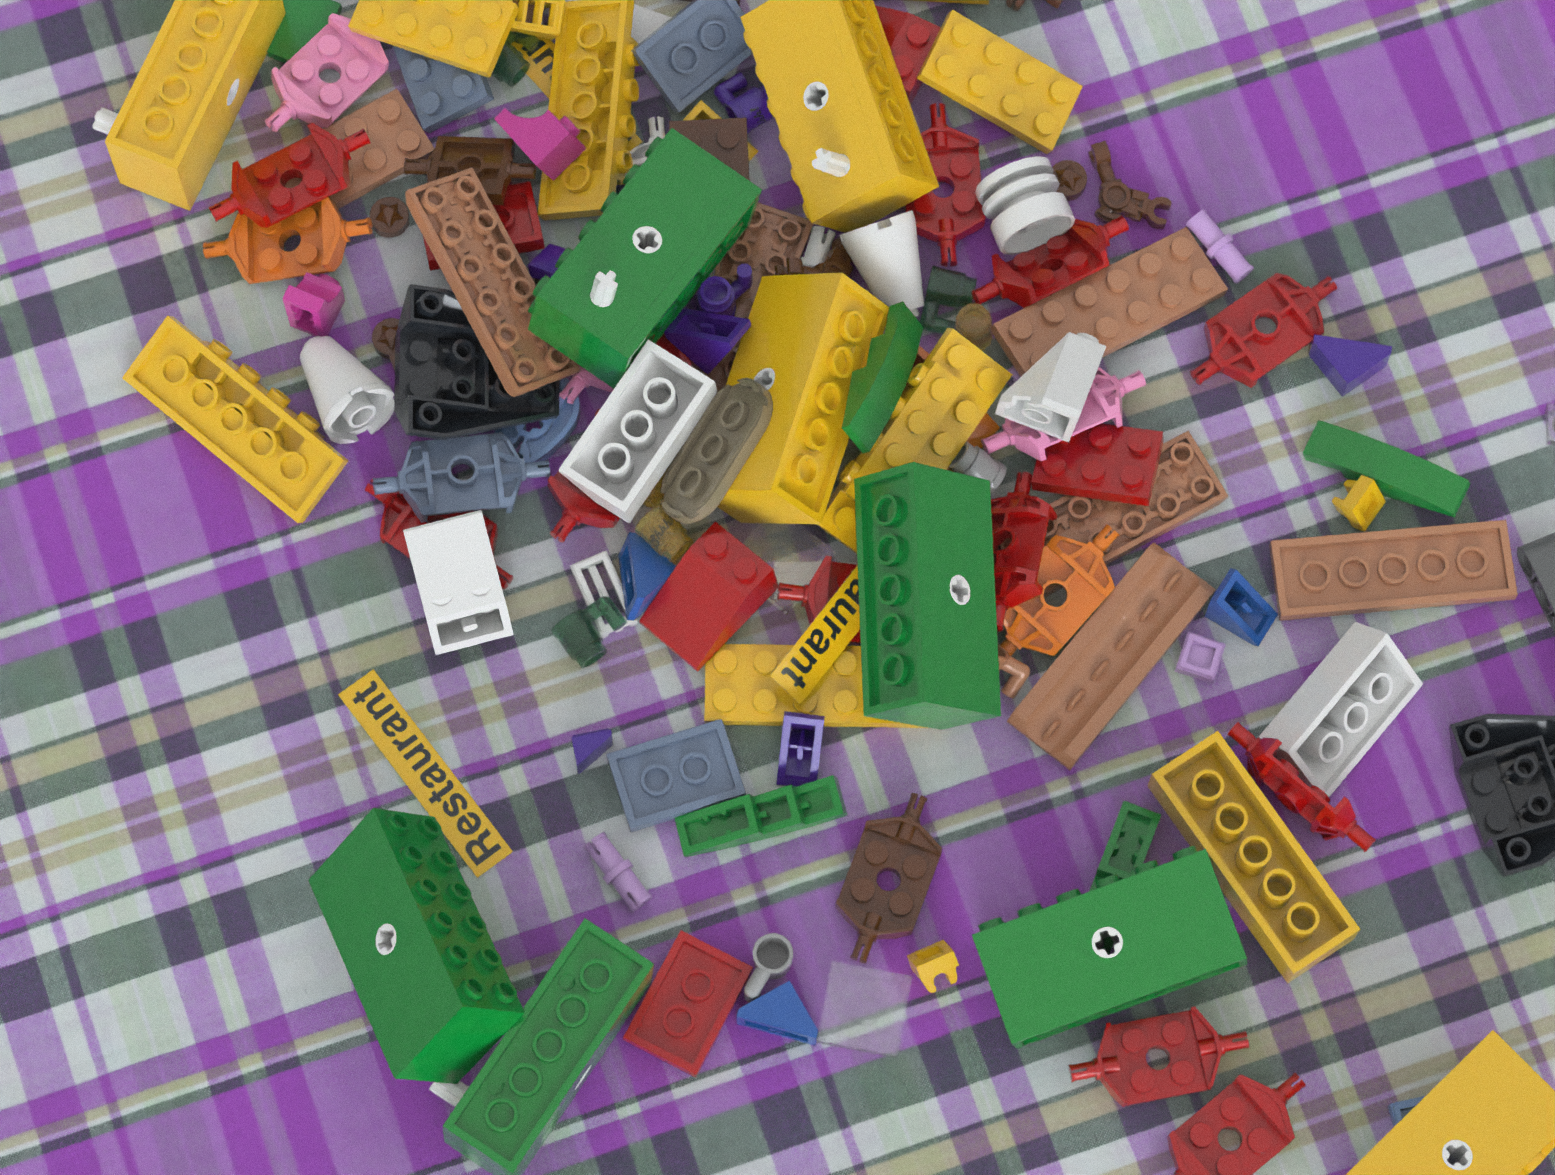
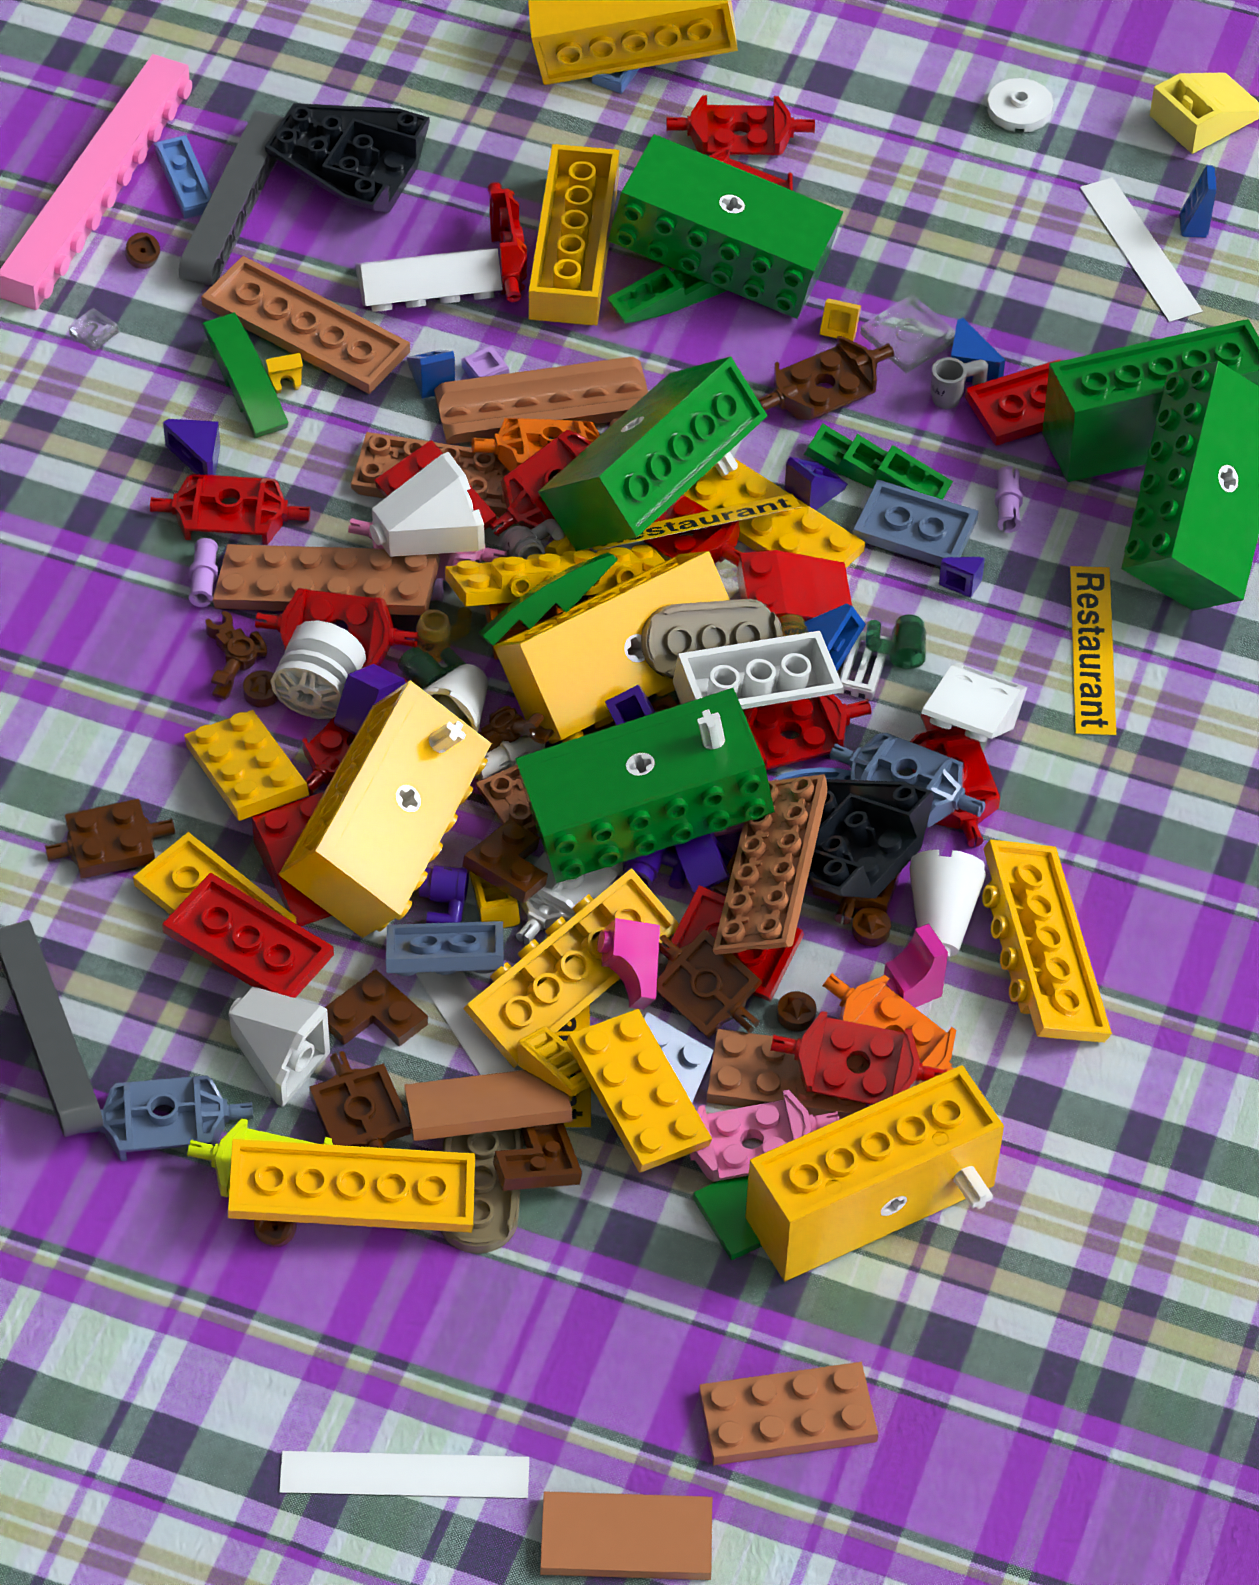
camera: 140 degrees left, 20 degrees down
(959, 212) = (363, 691): none -> dark purple slope

